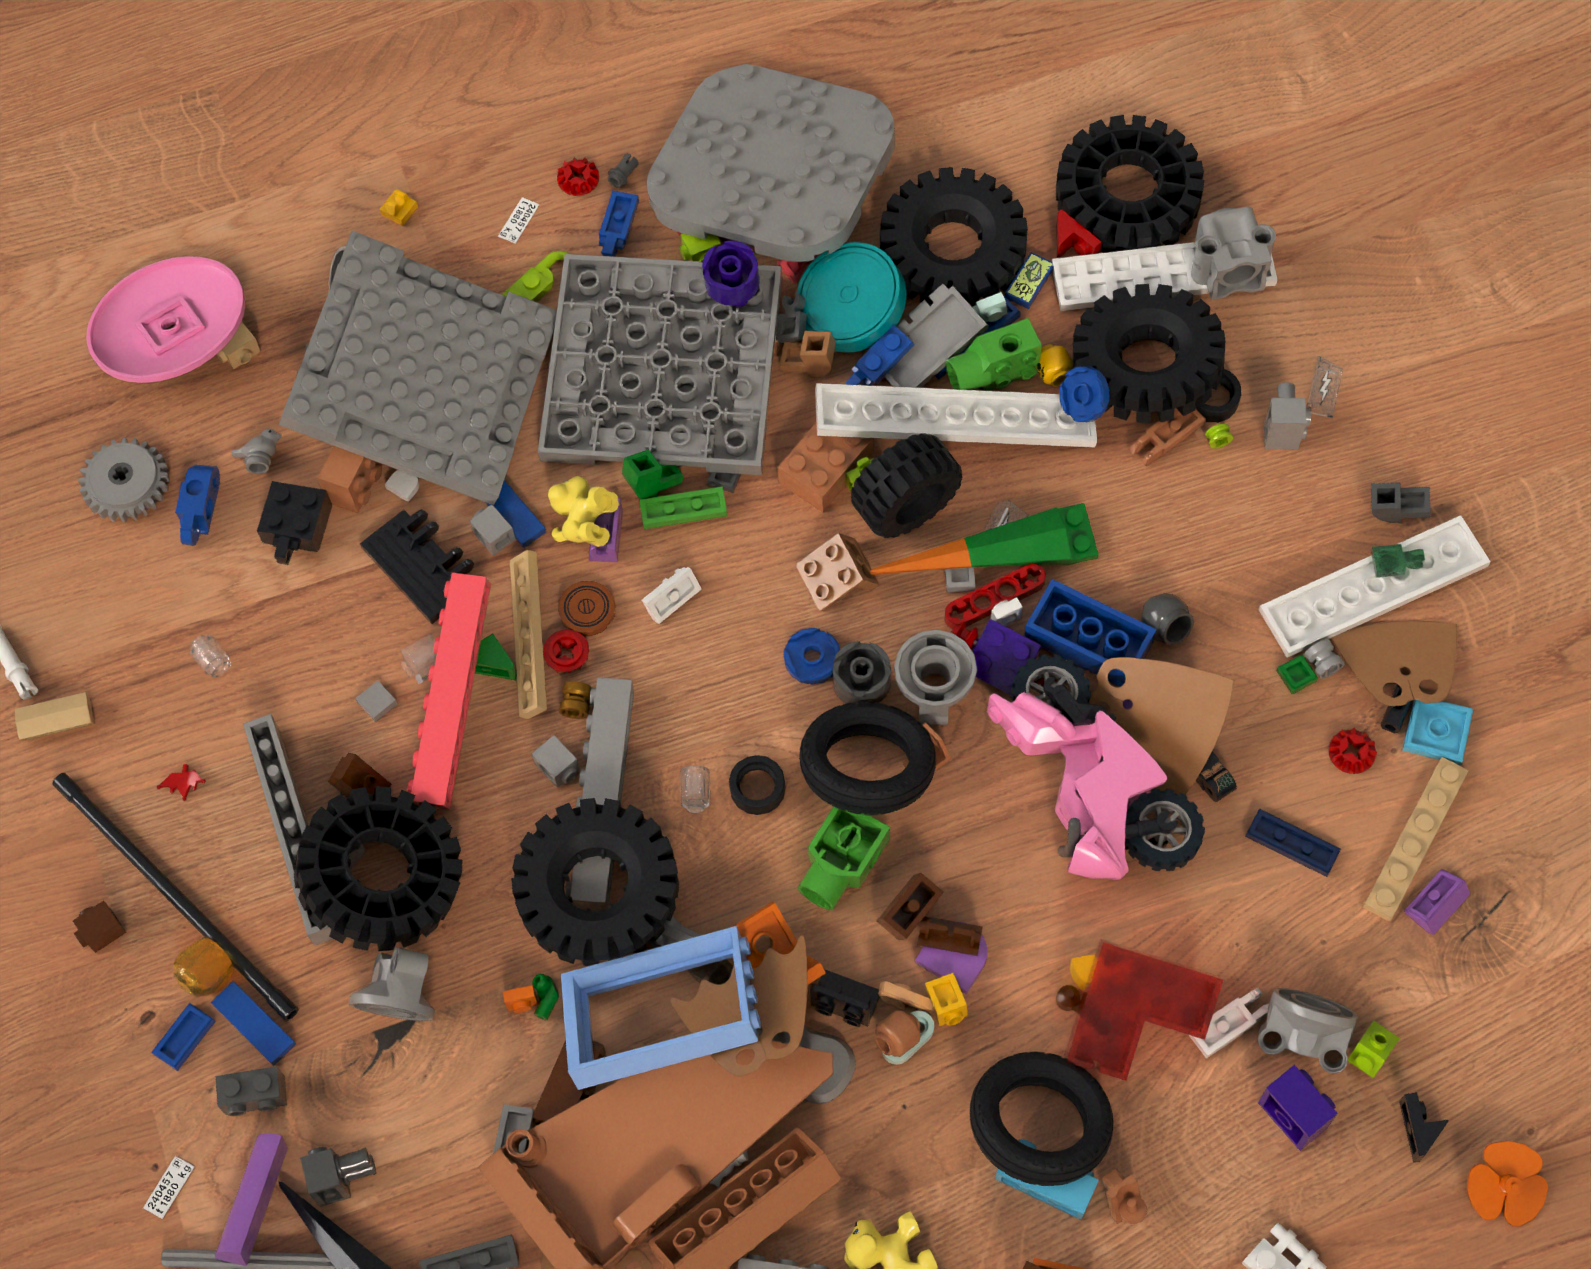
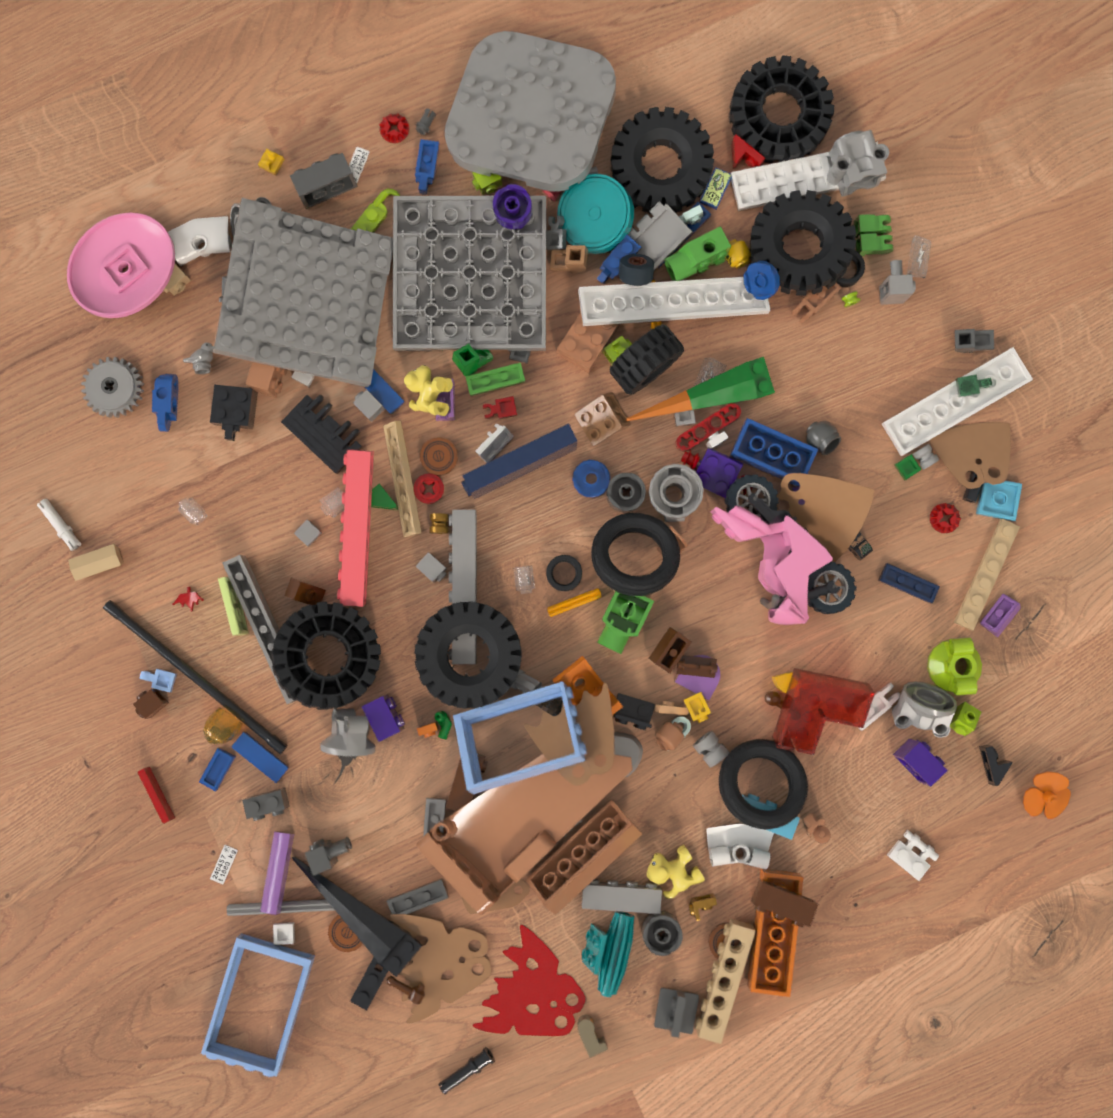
camera: 10 degrees left, 20 degrees up
(82, 1065) = (156, 795): none -> red tile
(121, 894) = (161, 680): none -> light blue plate
(249, 791) = (233, 608): none -> yellowish green tile
(297, 288) = (189, 236): none -> white panel
(451, 967) = (383, 717): none -> dark purple brick
(469, 231) = (323, 180): none -> dark grey brick
(691, 548) = (504, 408): none -> red plate
(705, 615) = (520, 462): none -> dark blue brick
(768, 830) = (574, 602): none -> light orange axle
(902, 369) = (636, 269): none -> black wheel
(962, 1062) = (711, 749): none -> light grey wheel
(980, 1210) = (725, 840): none -> white panel
(1256, 352) = (867, 229): none -> bright green legs
(1349, 984) = (942, 666): none -> lime piece

